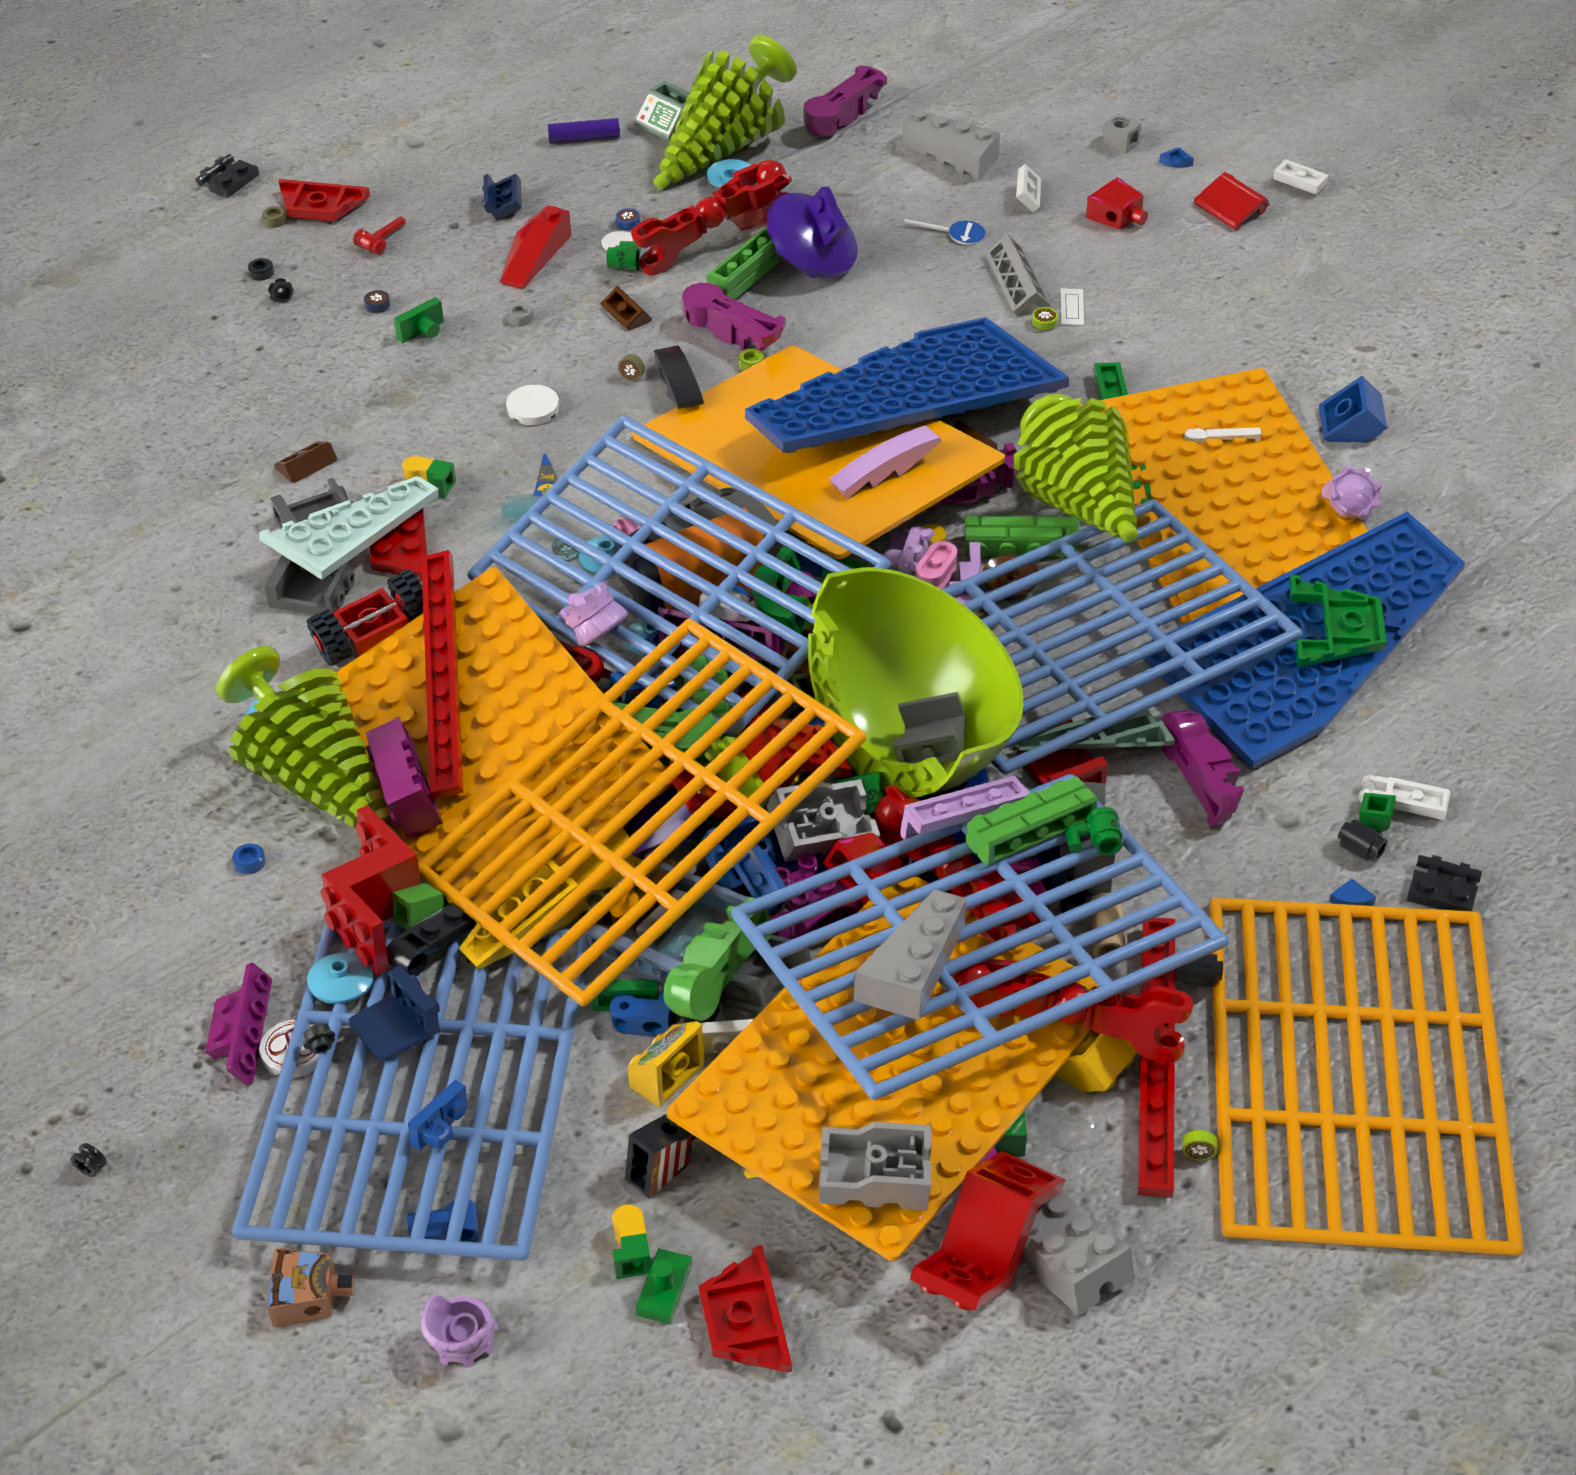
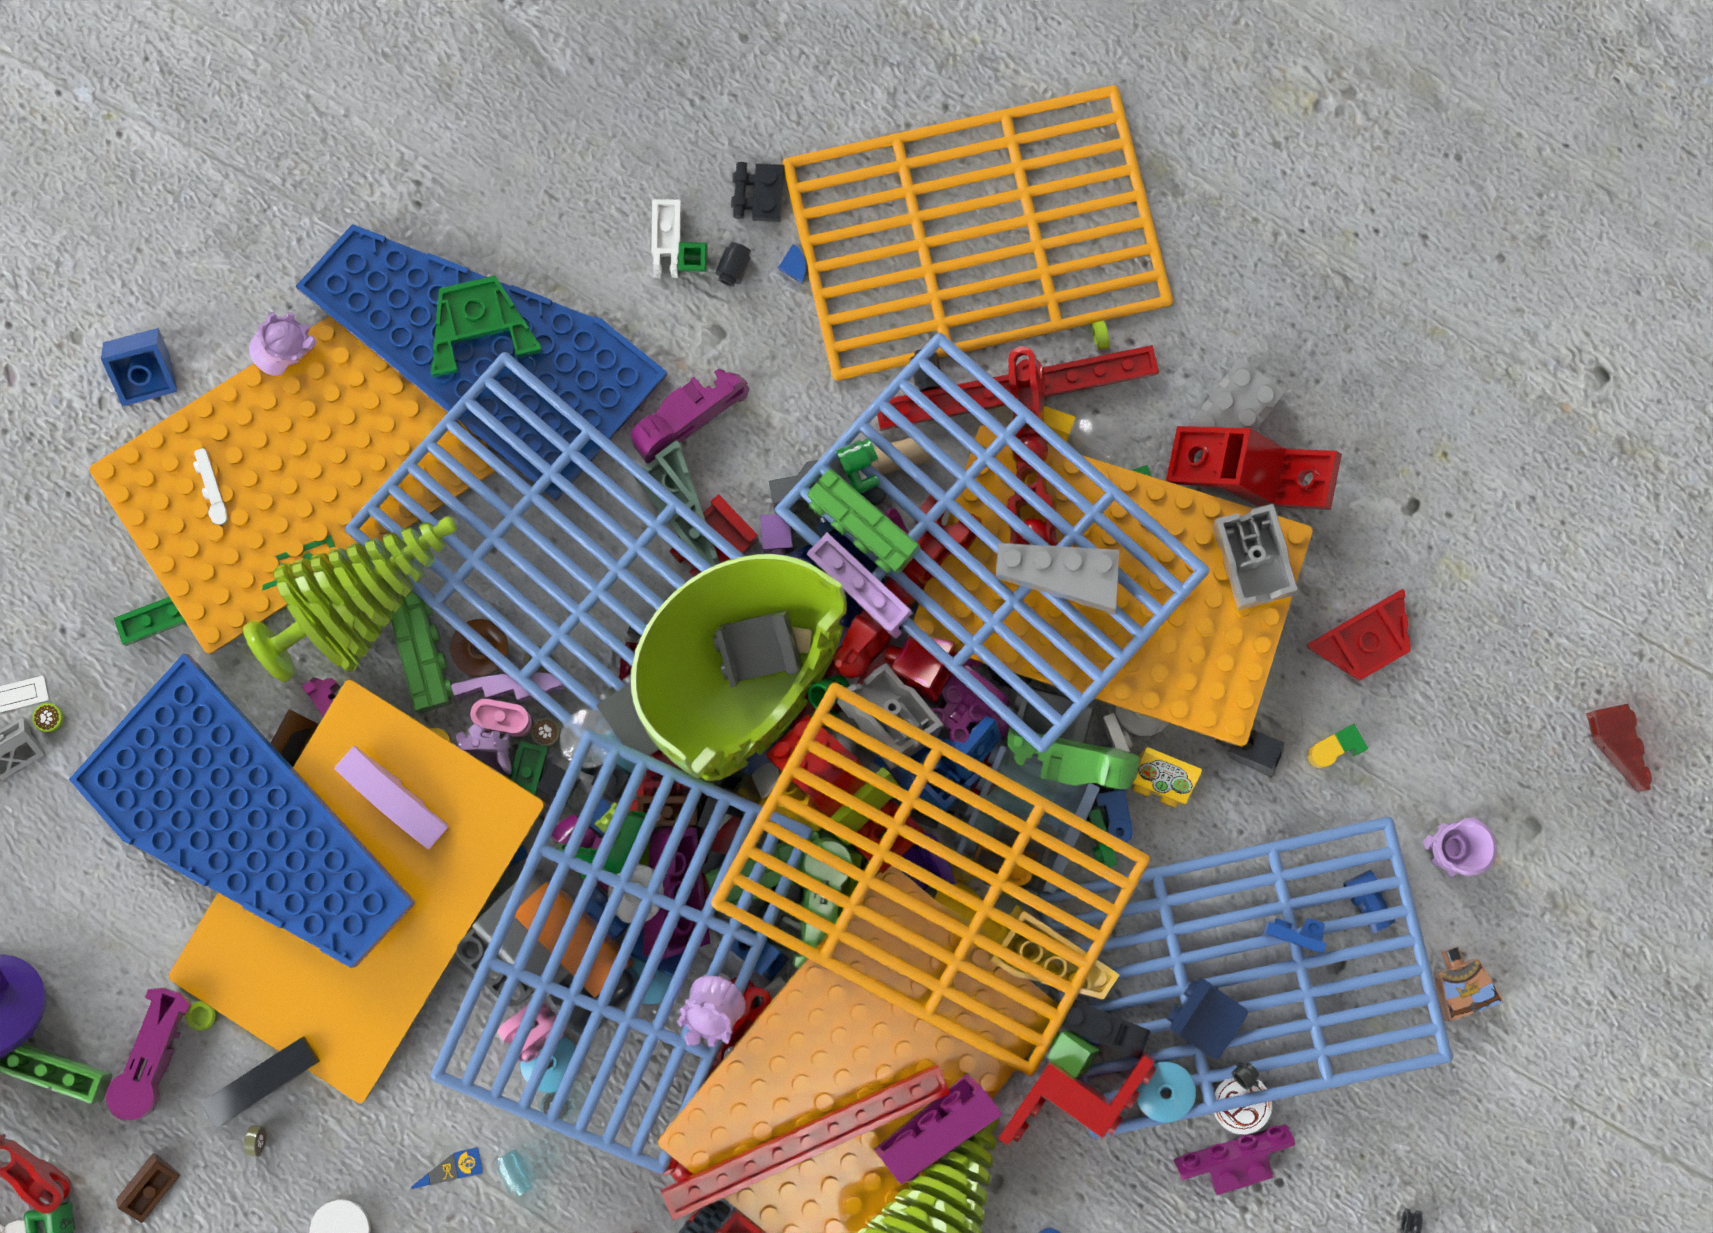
camera: 105 degrees left, 35 degrees up
(664, 1286) = (1361, 710): green tile -> none

